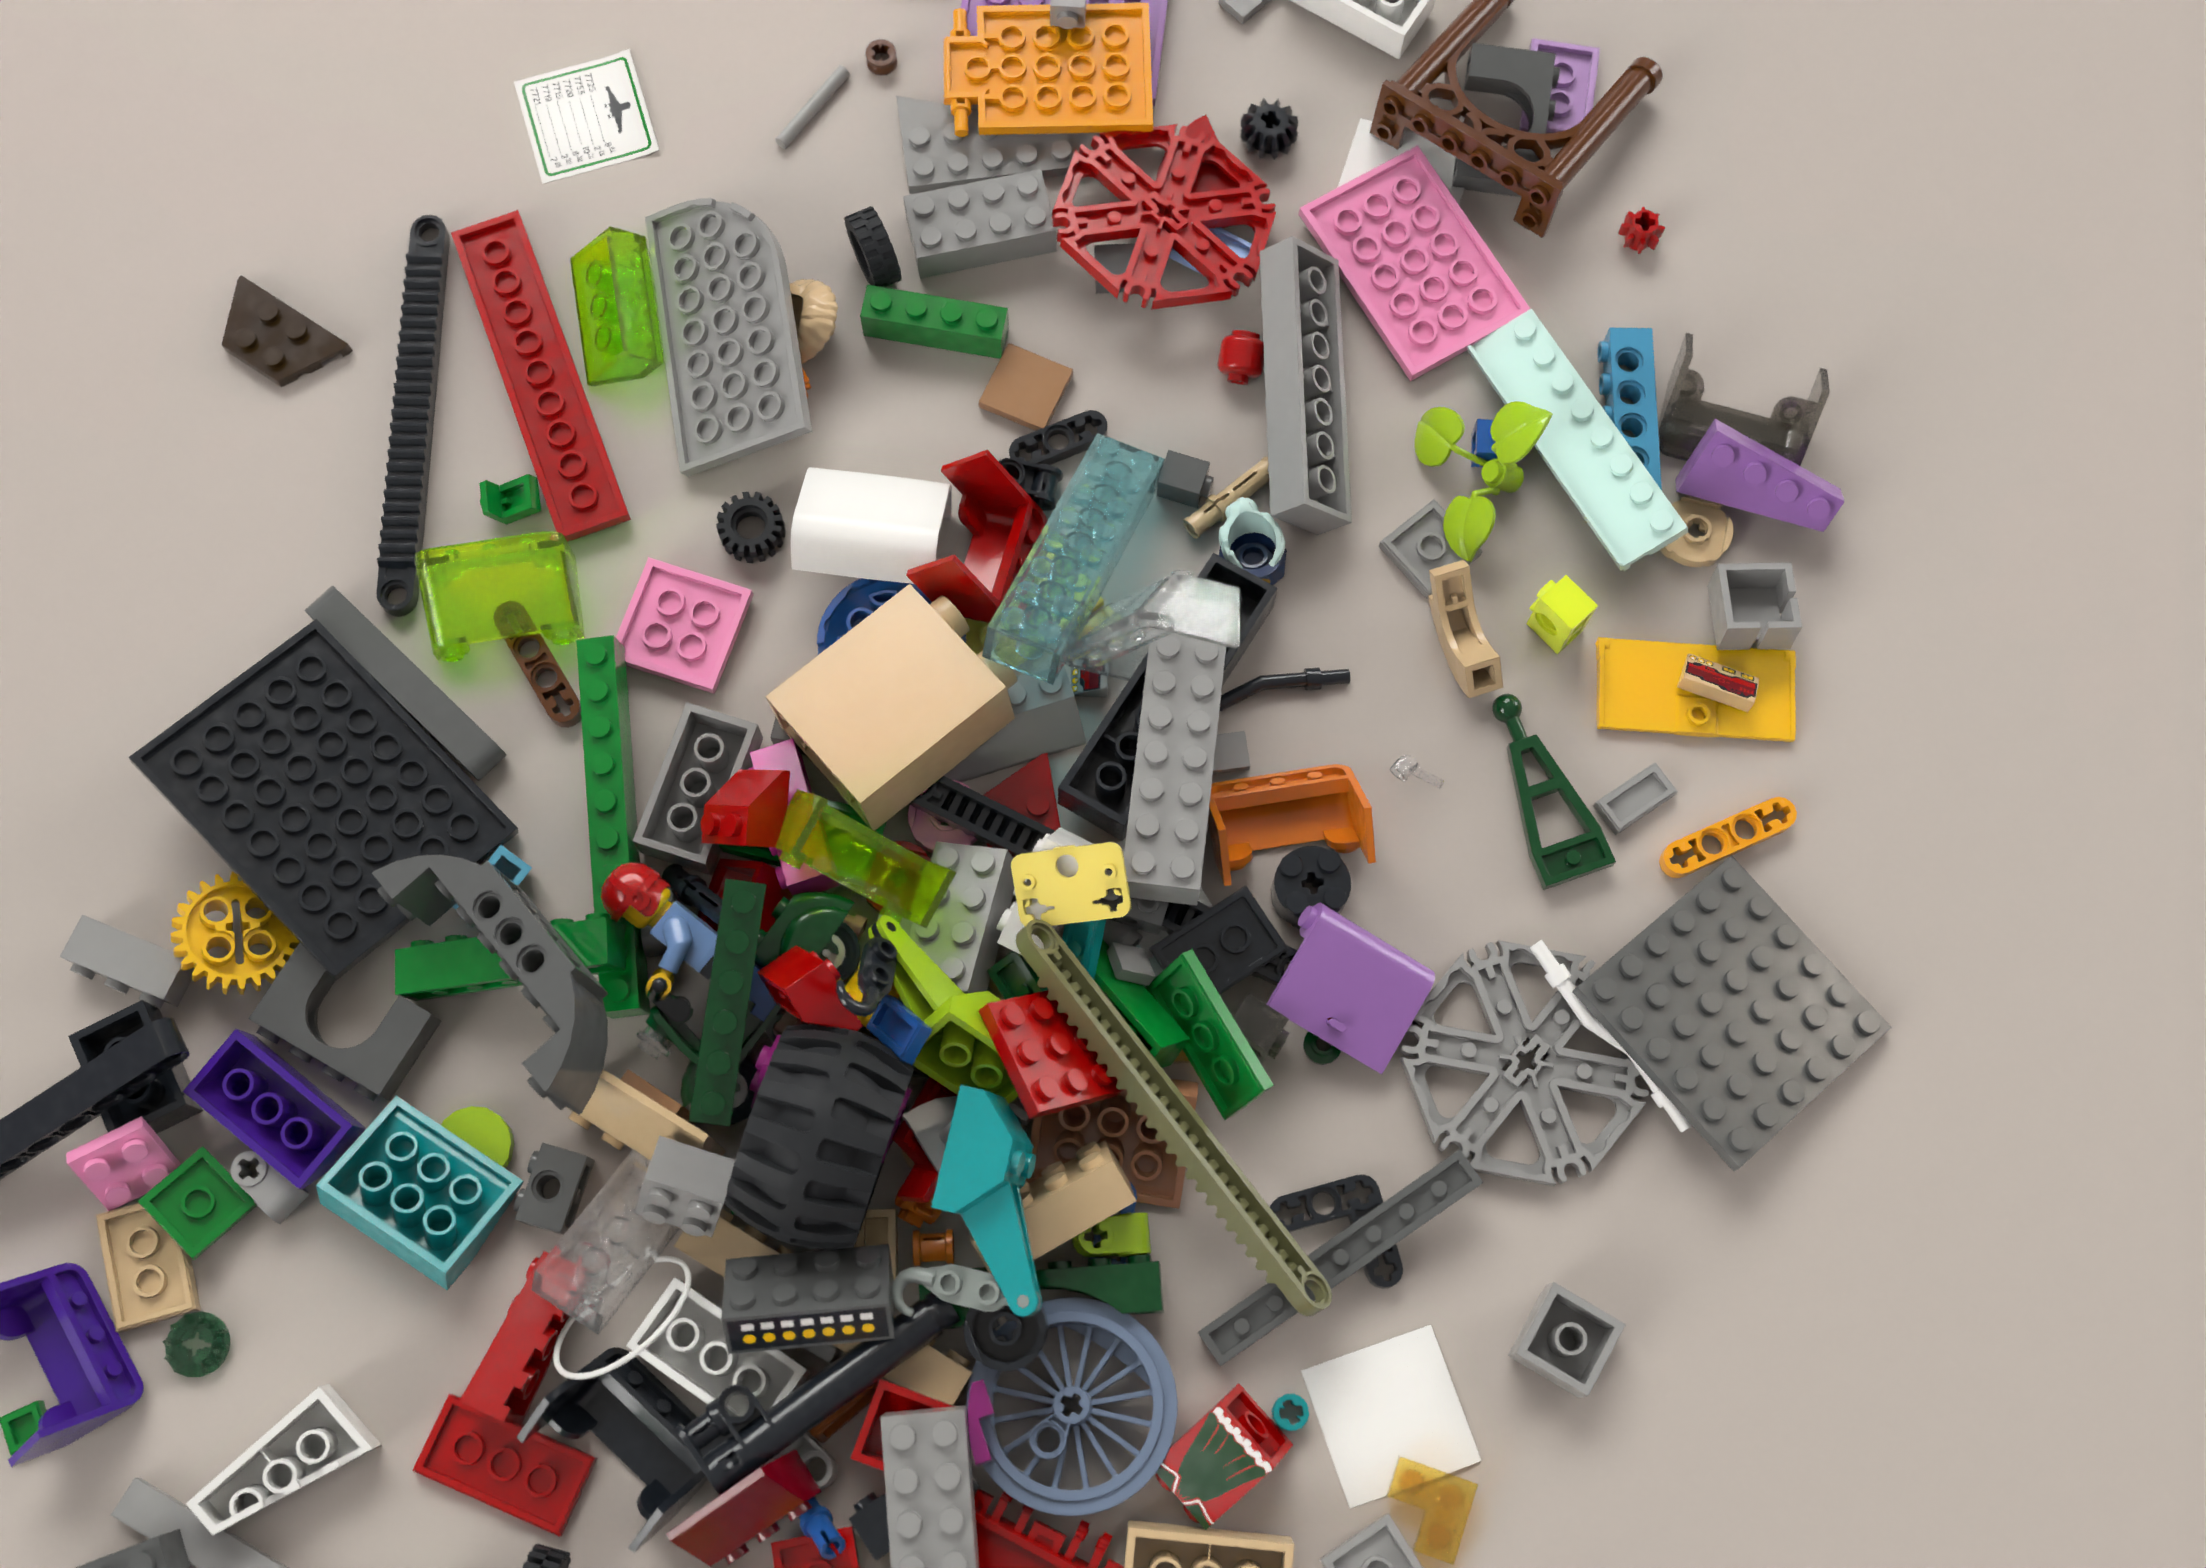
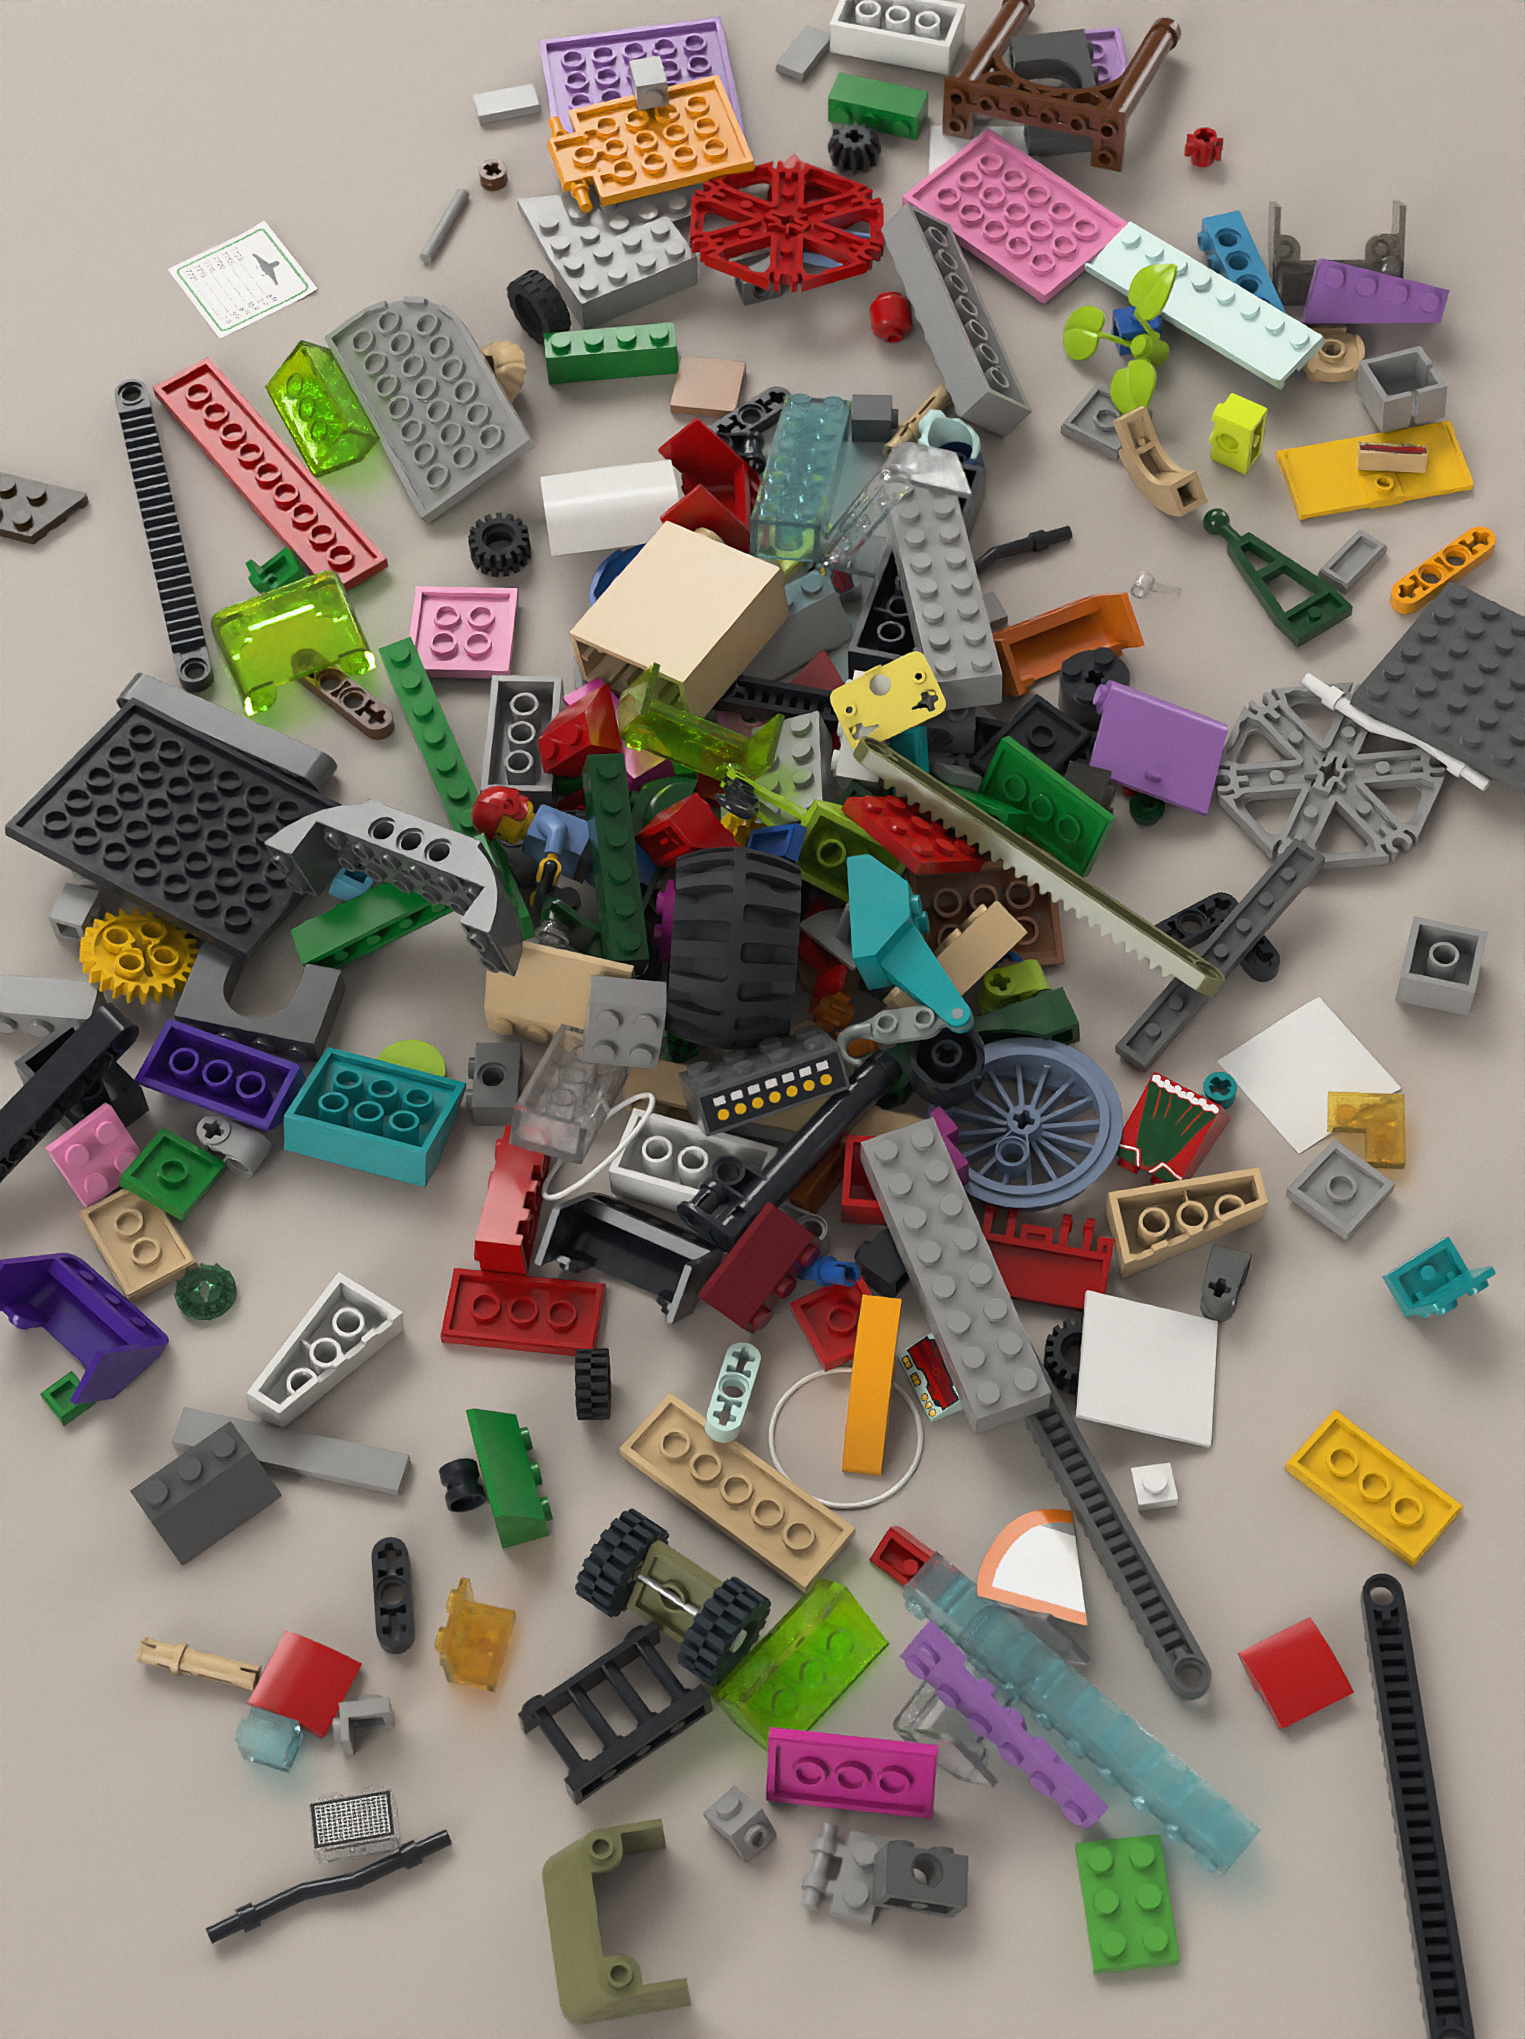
camera: 10 degrees left, 15 degrees down
(191, 859) = (75, 911): none -> light grey brick
(1309, 82) = (881, 104): none -> green brick

